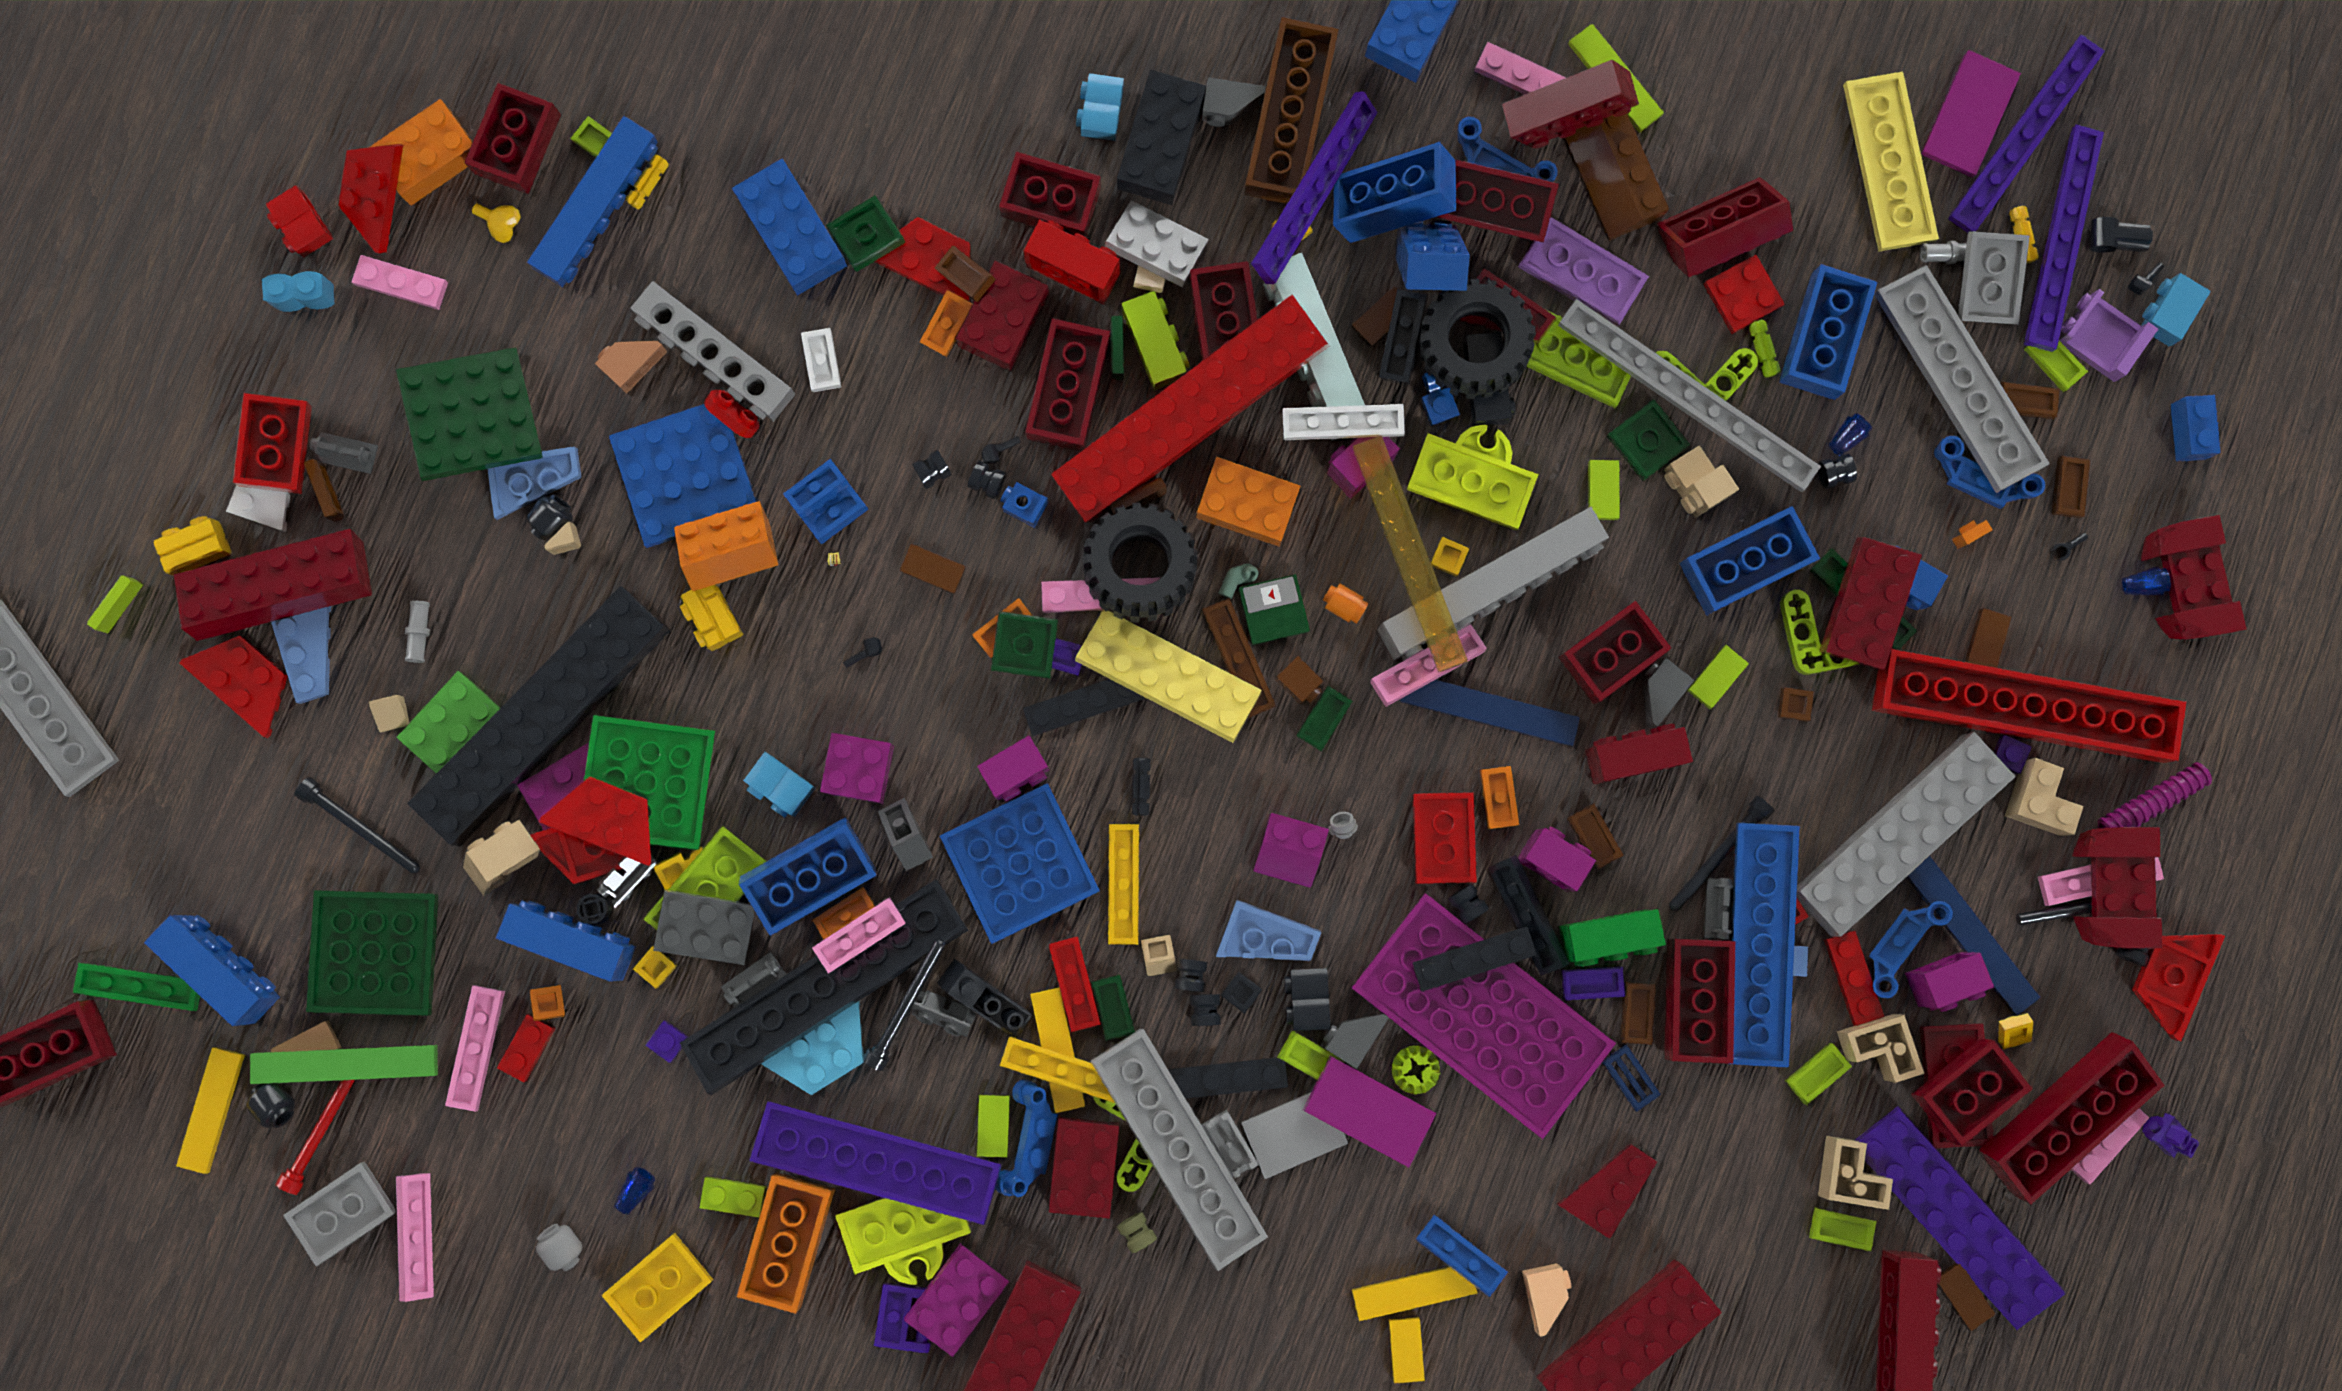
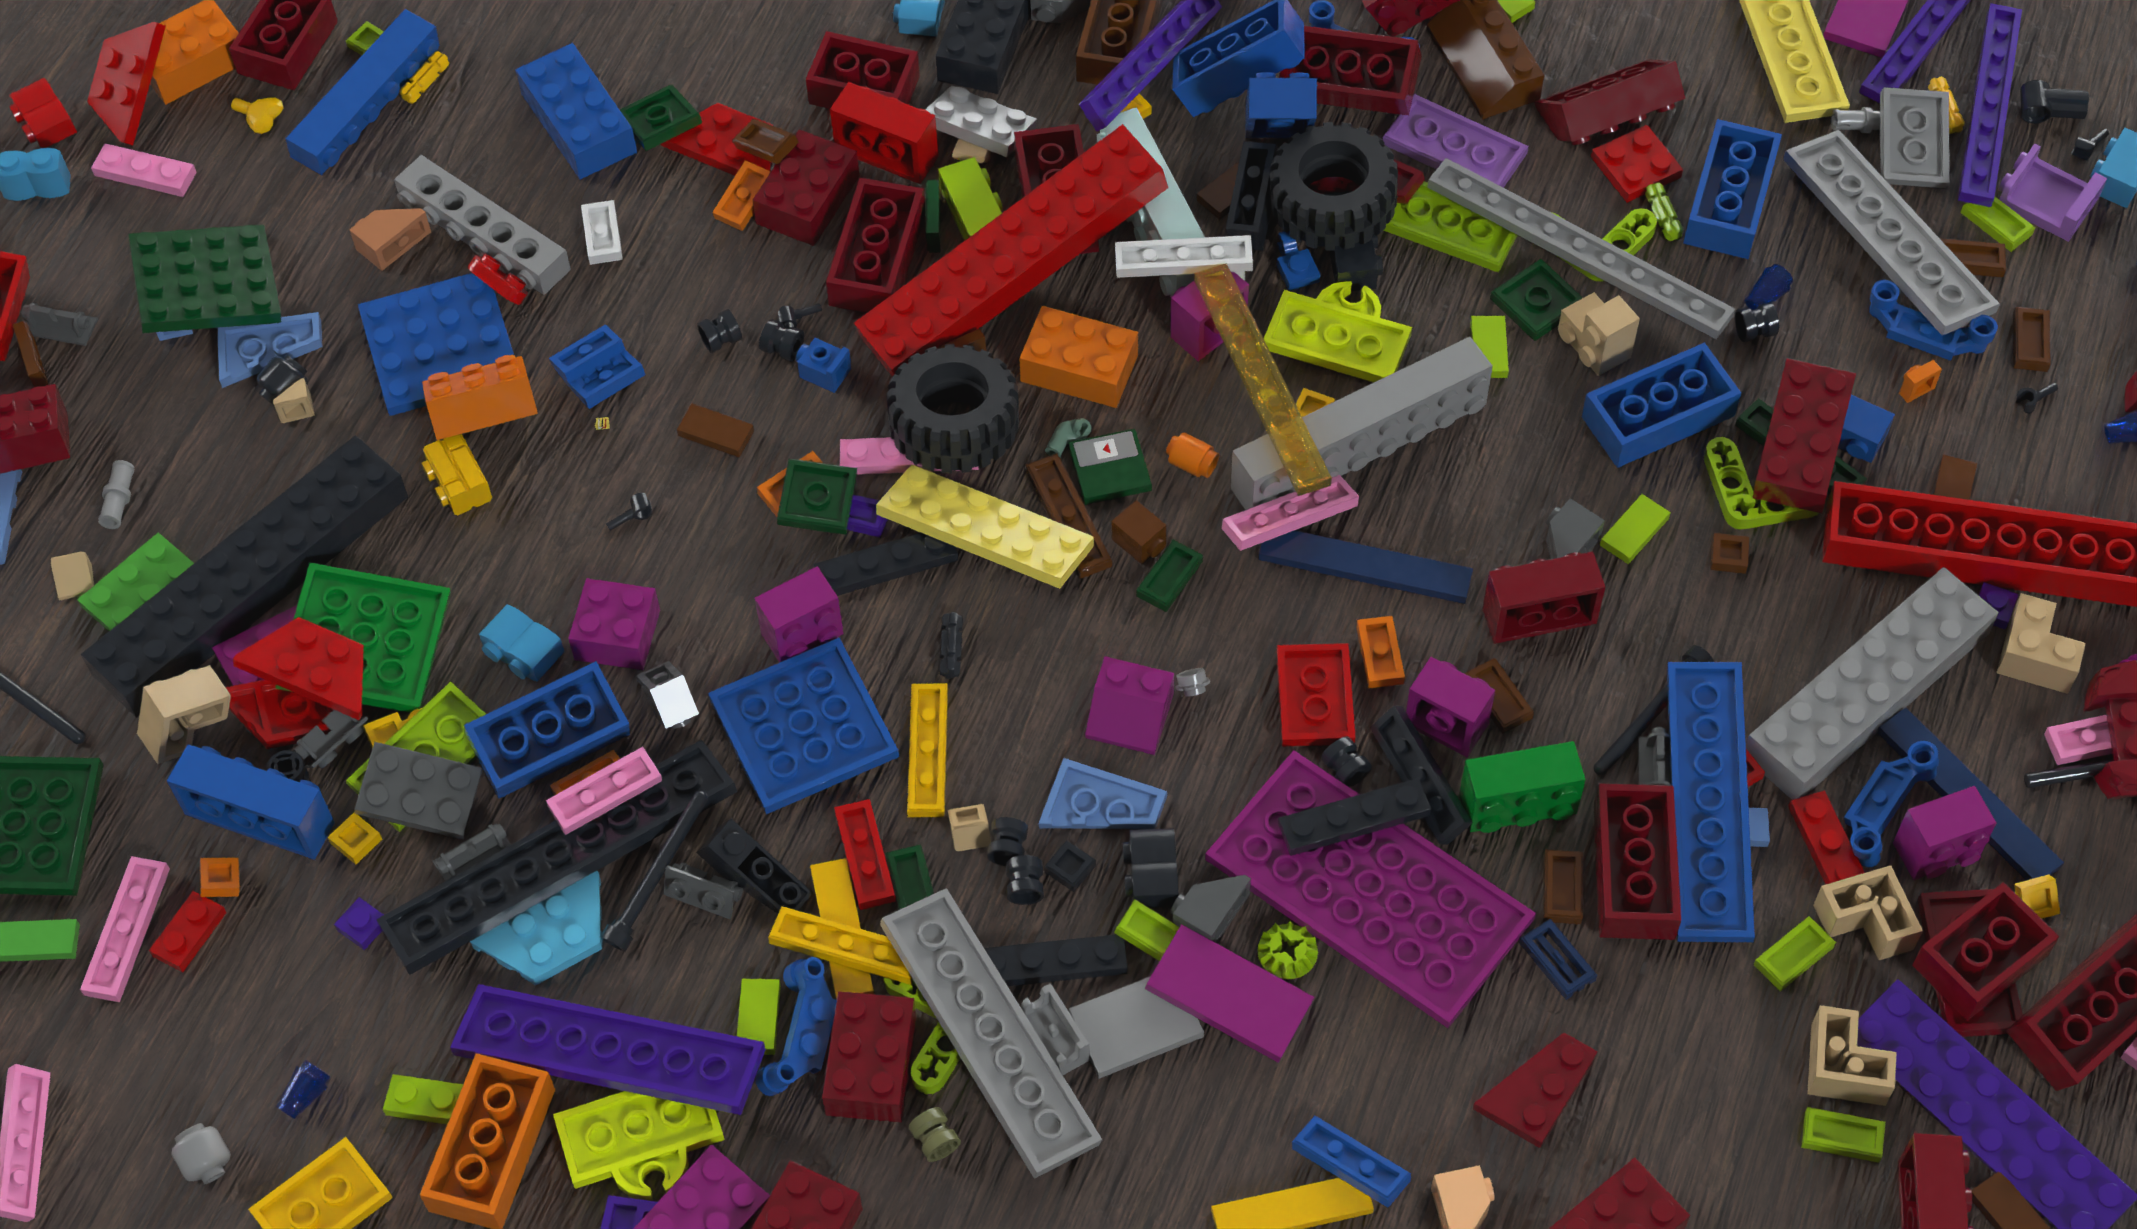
camera: 10 degrees right, 25 degrees down
(1593, 983) = (1505, 853): dark purple tile -> none
(1614, 652) = (1508, 496): dark red brick -> none

